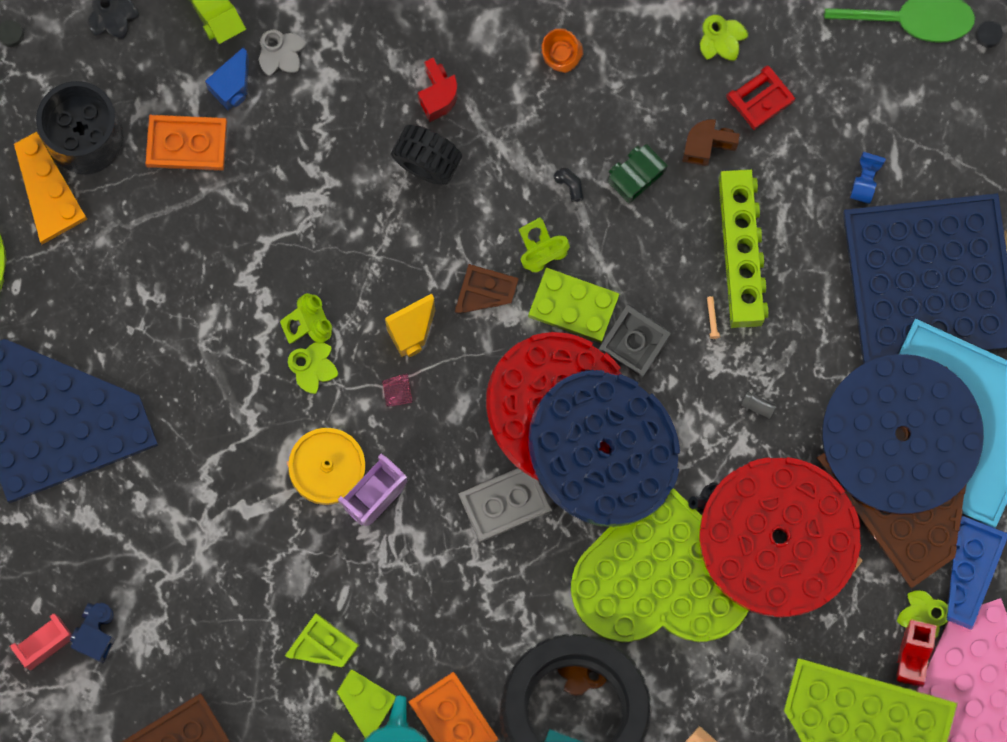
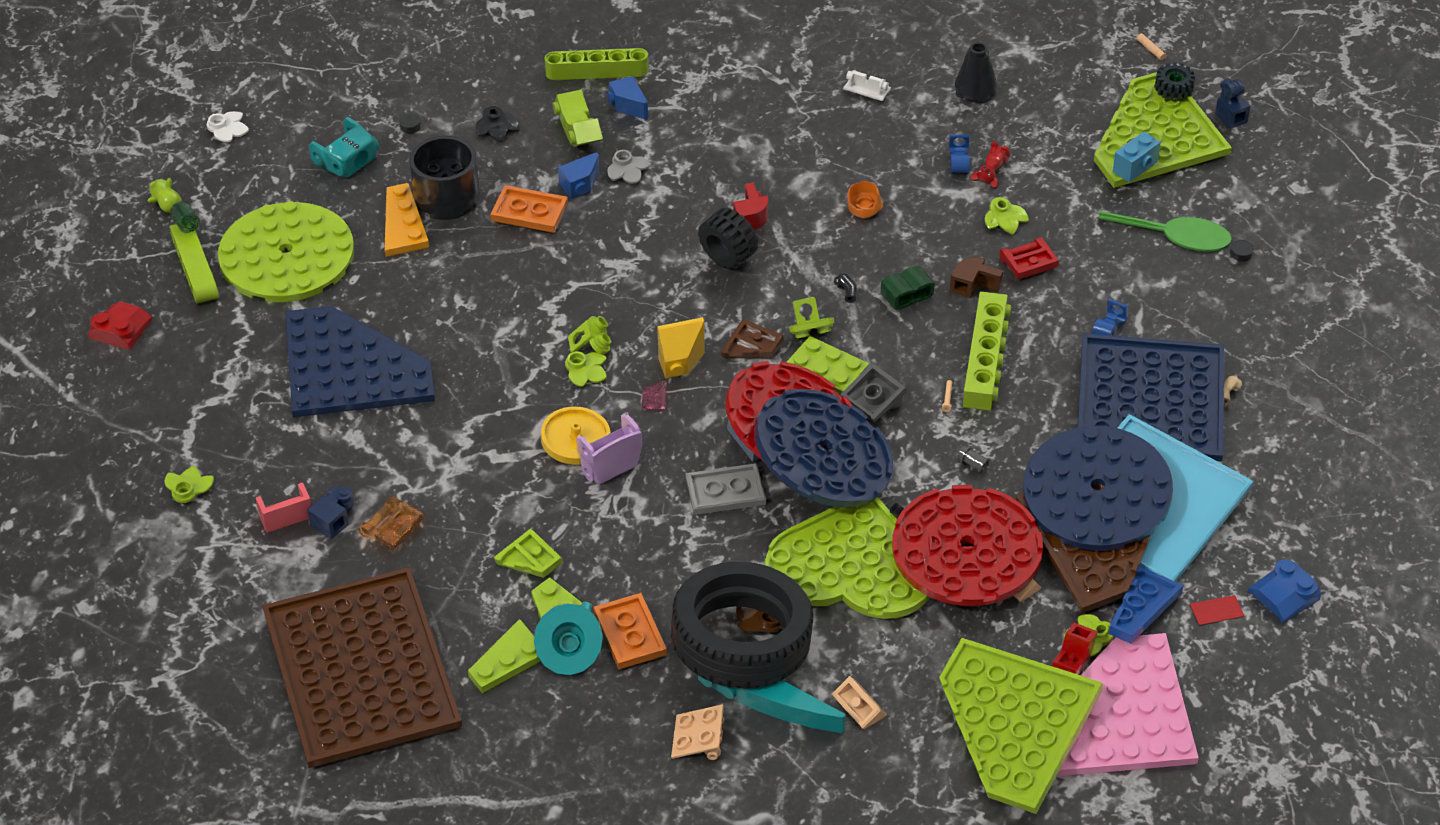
camera: 15 degrees right, 30 degrees down
(169, 636) = (395, 527): none -> clear orange plate

